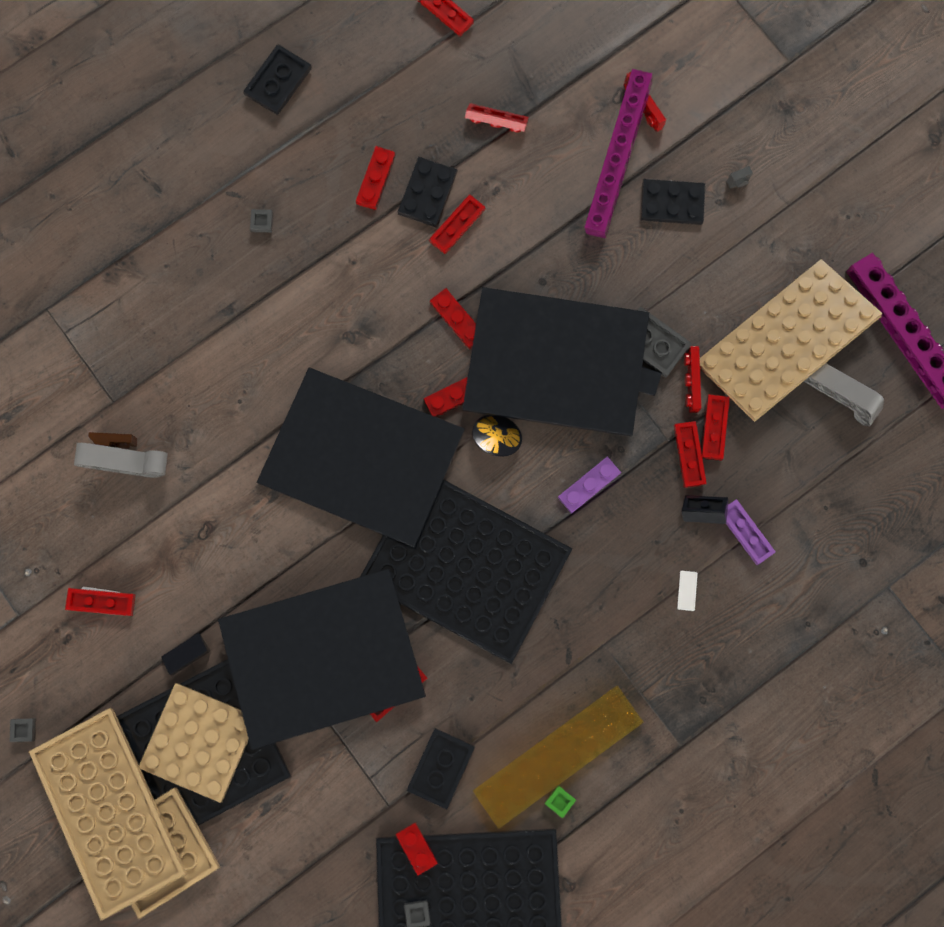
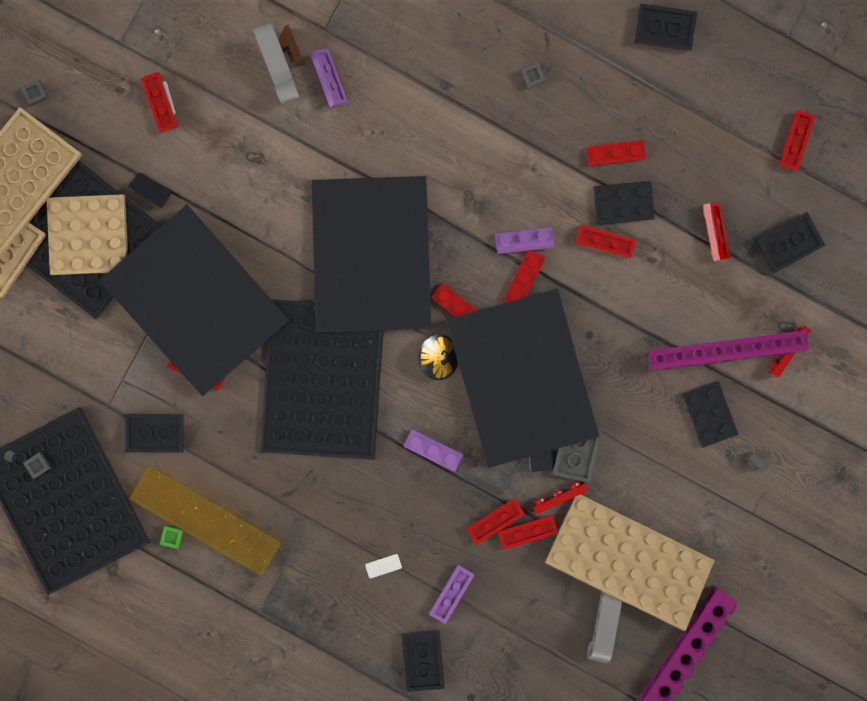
camera: 65 degrees right, 10 degrees up
(163, 418) = (329, 77): none -> medium lavender plate
(416, 848) = (85, 442): red plate -> none
(419, 300) = (524, 240): none -> medium lavender plate
(539, 56) = (790, 242): none -> black plate
(705, 509) = (455, 552): black slope -> none
(804, 593) = (423, 660): none -> black plate

